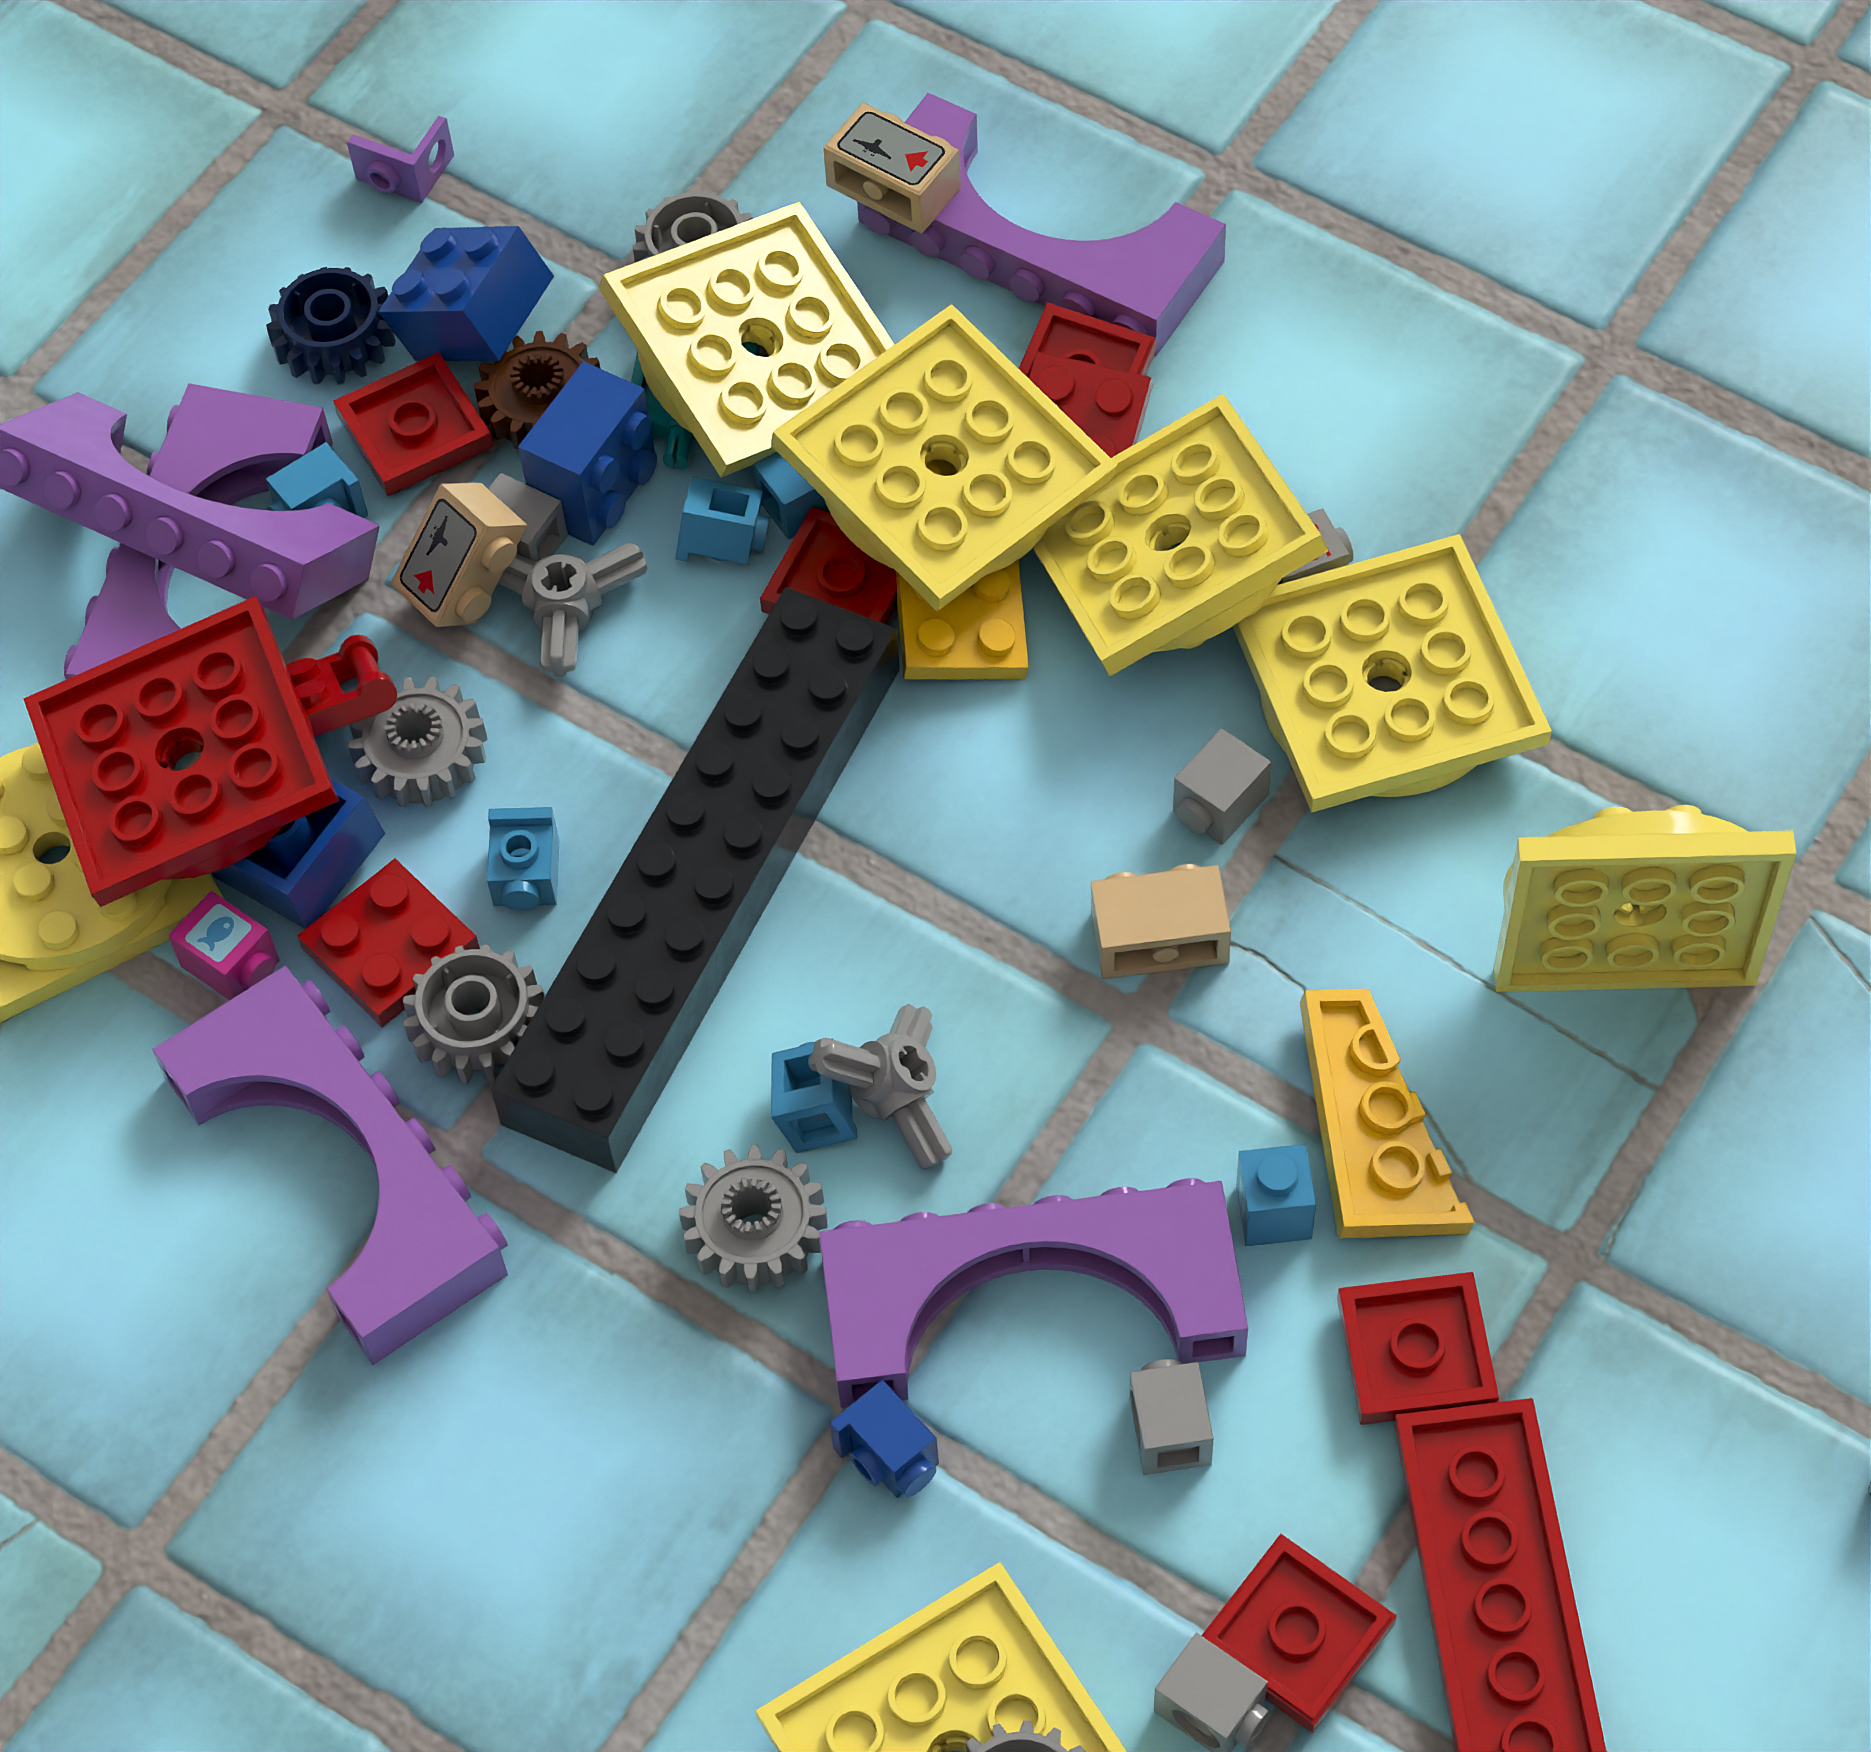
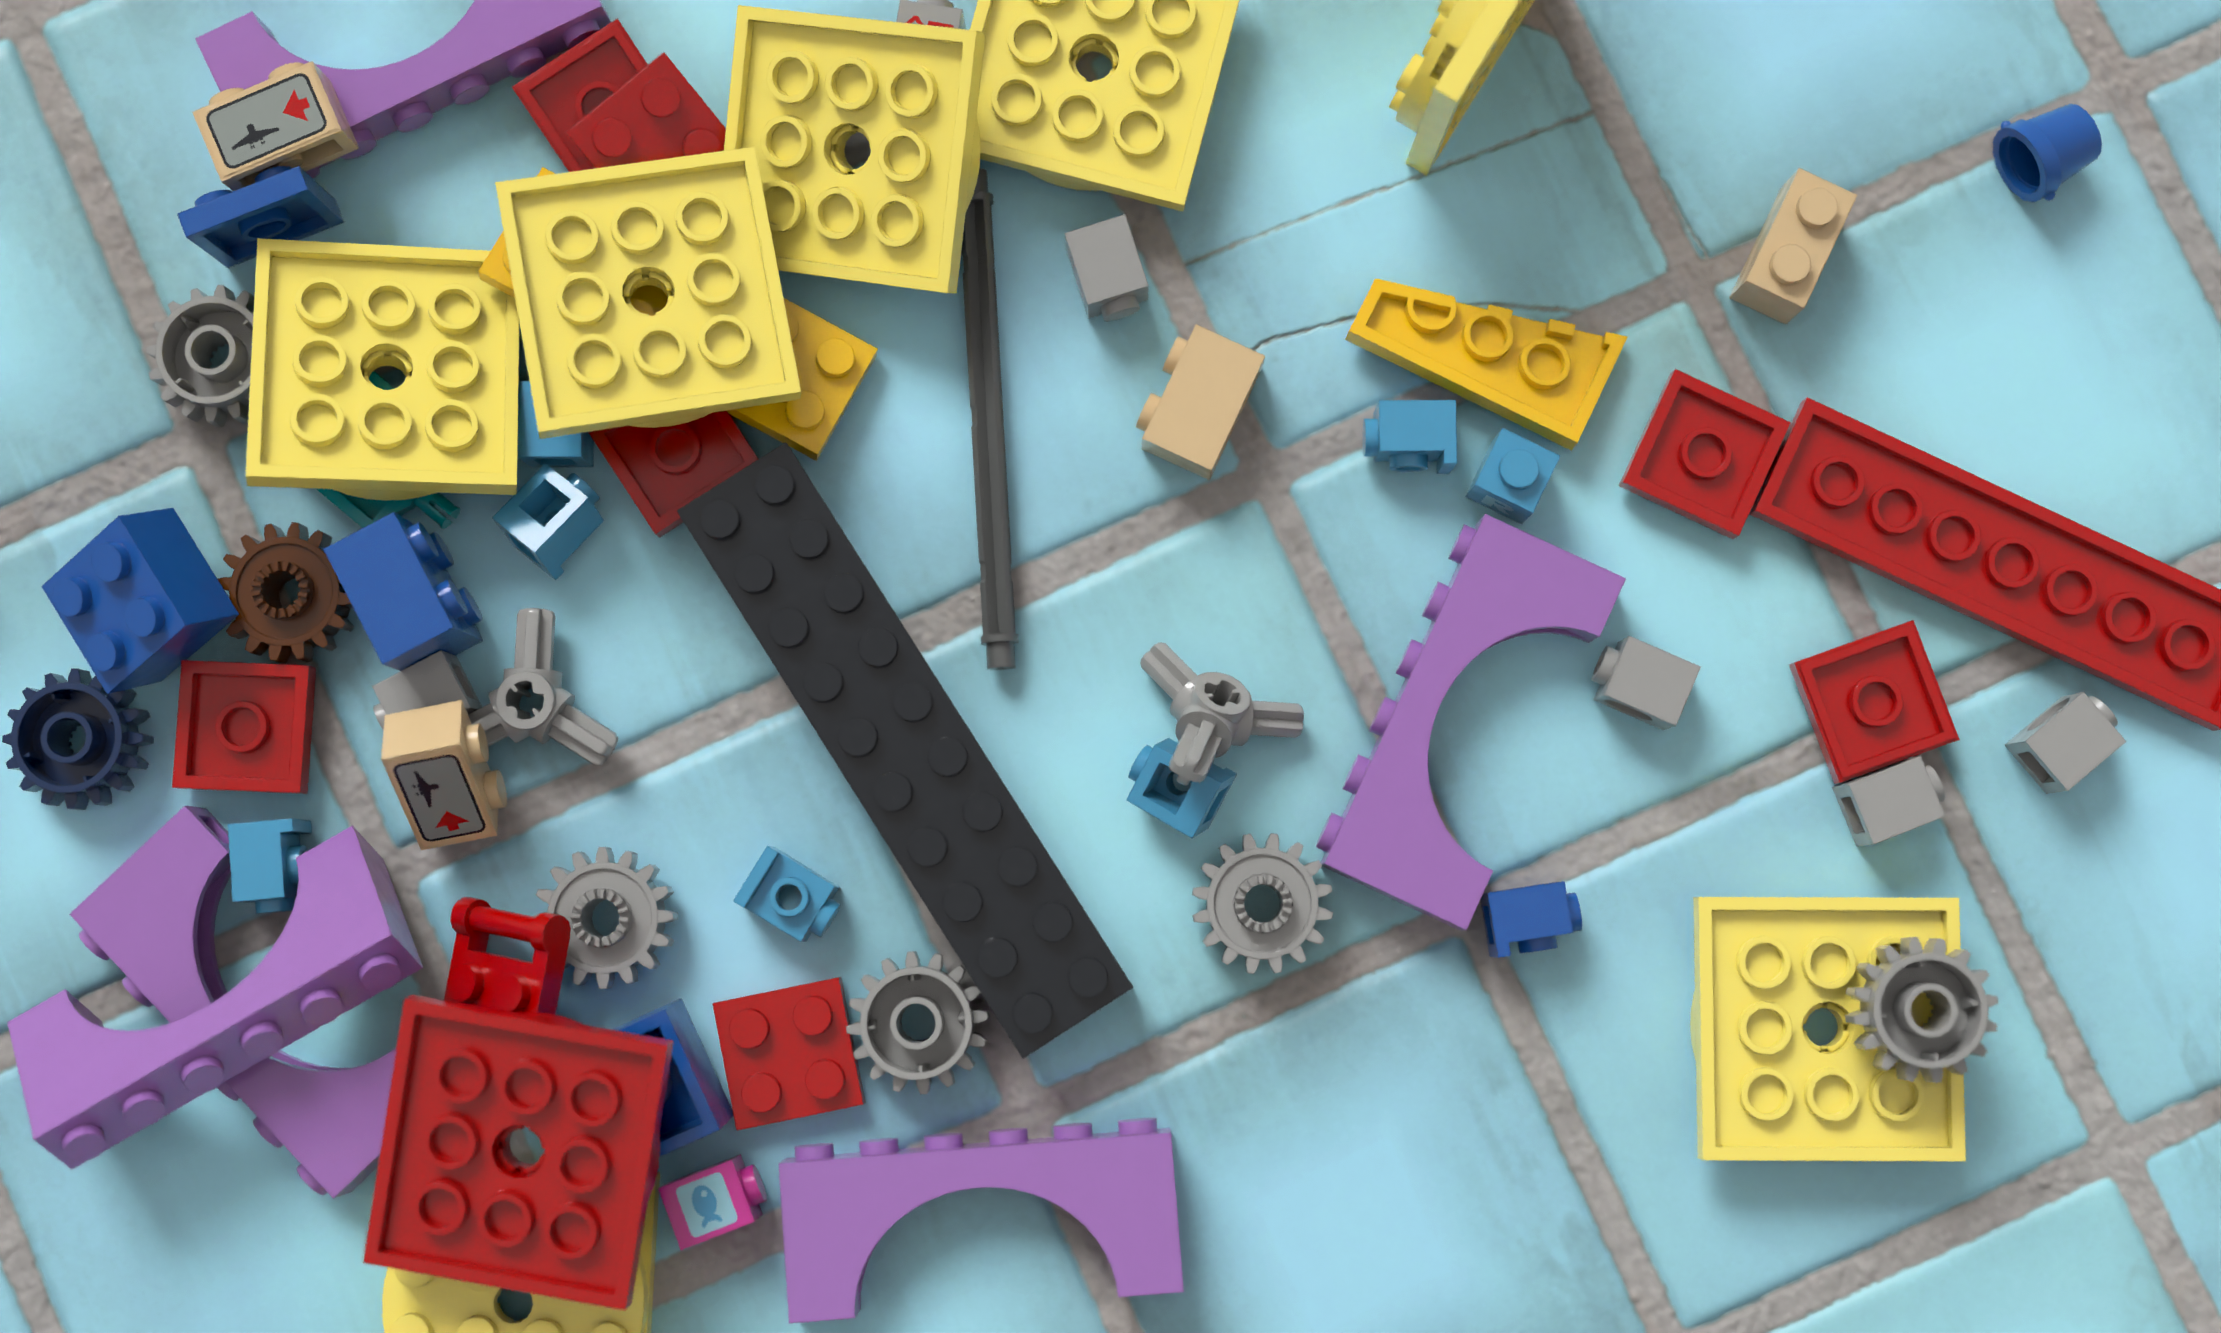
camera: 60 degrees left, 25 degrees up
(833, 198) = (278, 206): none -> blue plate
(1026, 781) = (988, 431): none -> dark grey piece
(1255, 1097) = (1412, 434): none -> dark azure brick
(1659, 1304) = (1793, 246): none -> tan brick

